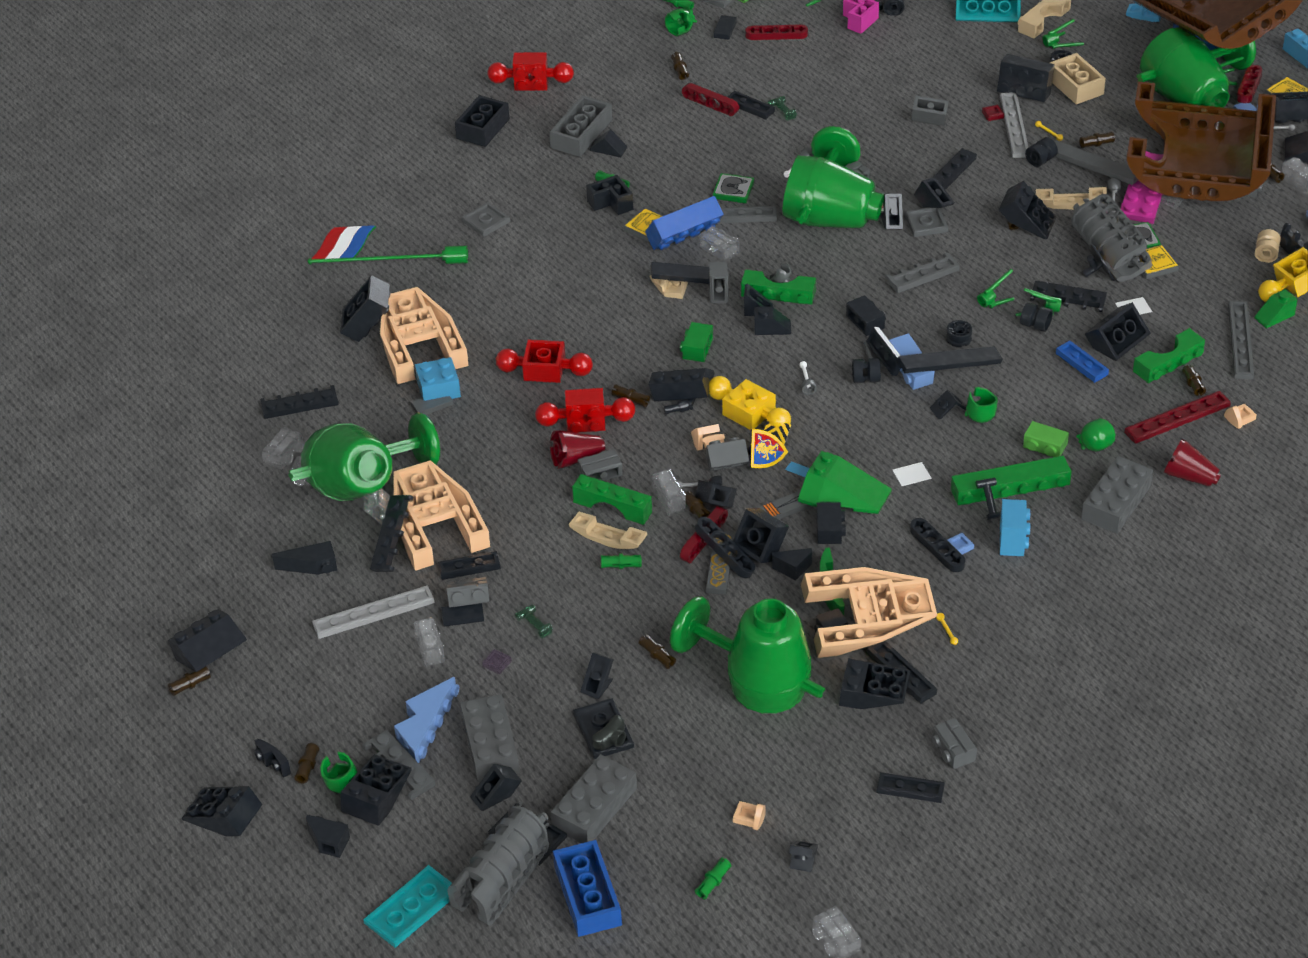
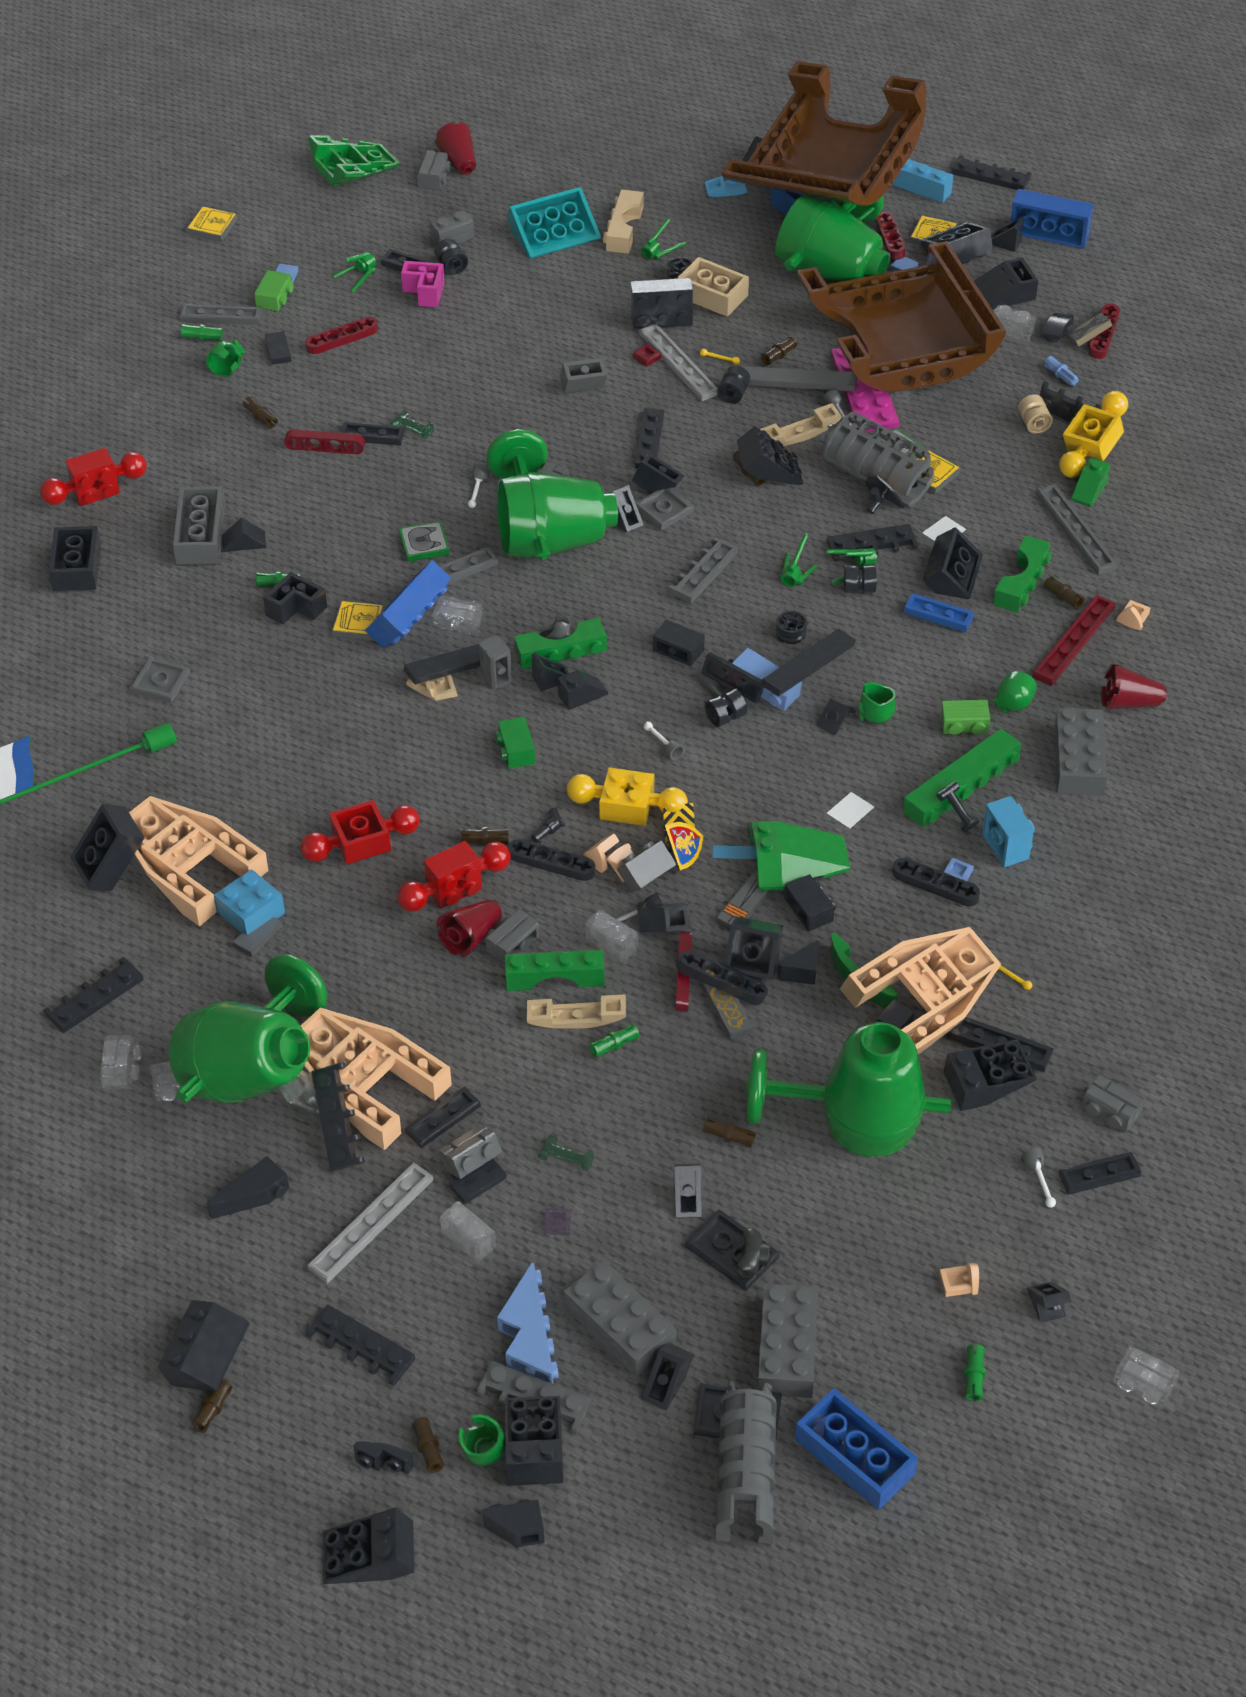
camera: 30 degrees left, 5 degrees up
(313, 683) = (362, 1342): none -> black hinge
(410, 906) = (670, 1562): teal tile -> none
(669, 426) = (553, 856): none -> black beam
(680, 384) = (537, 801): black slope -> none
(696, 505) = (653, 942): dark brown pin -> none
(865, 758) = (1035, 1160): none -> hinge

